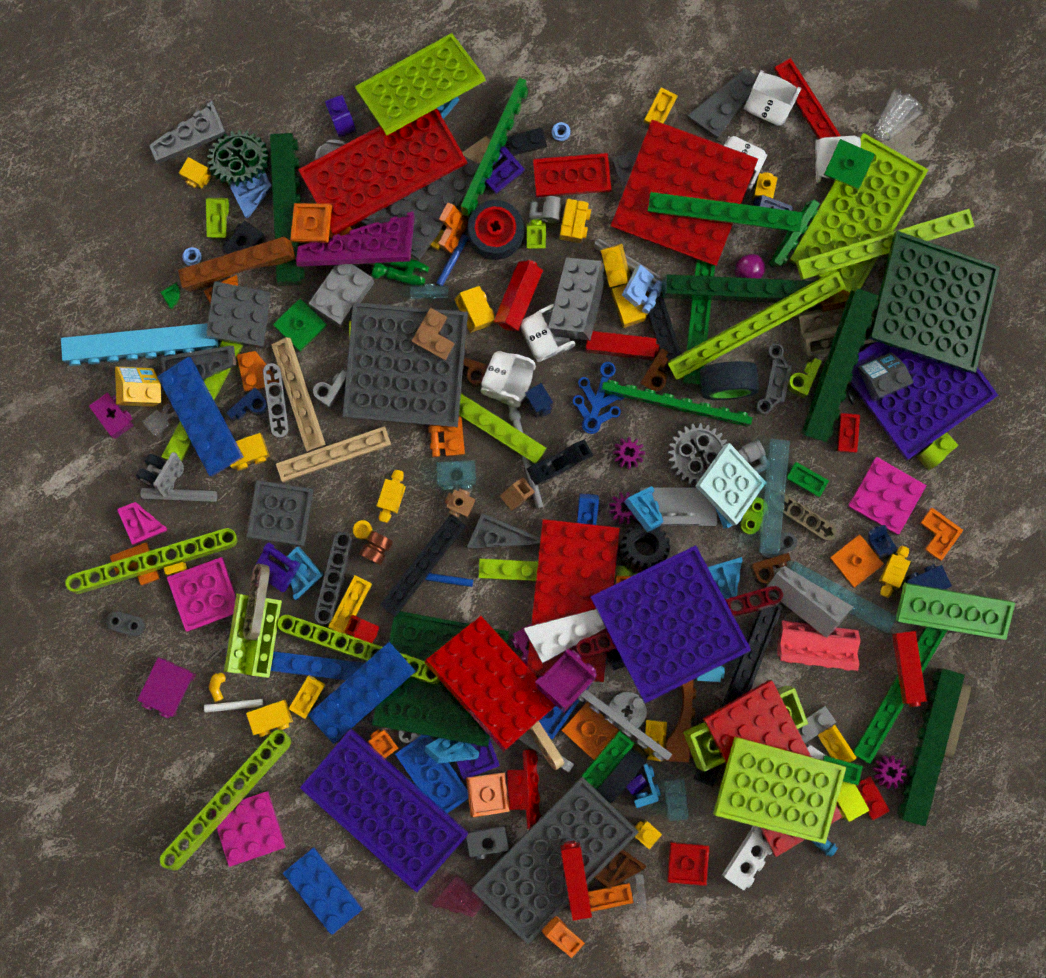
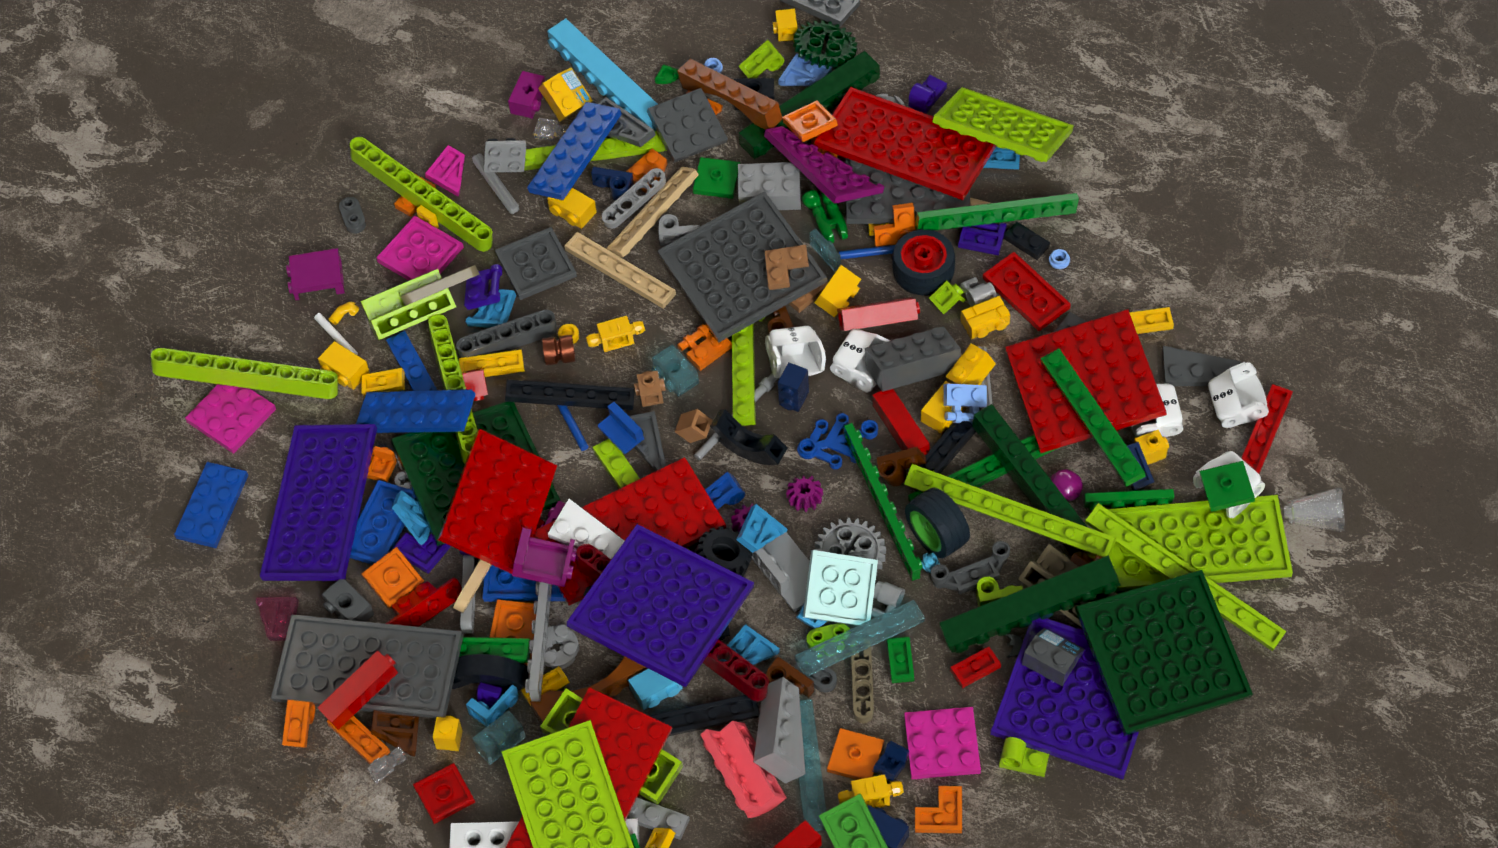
camera: 65 degrees right, 25 degrees down
(483, 549) = (621, 429): none -> blue panel
(747, 405) = (929, 561): none -> medium azure plate

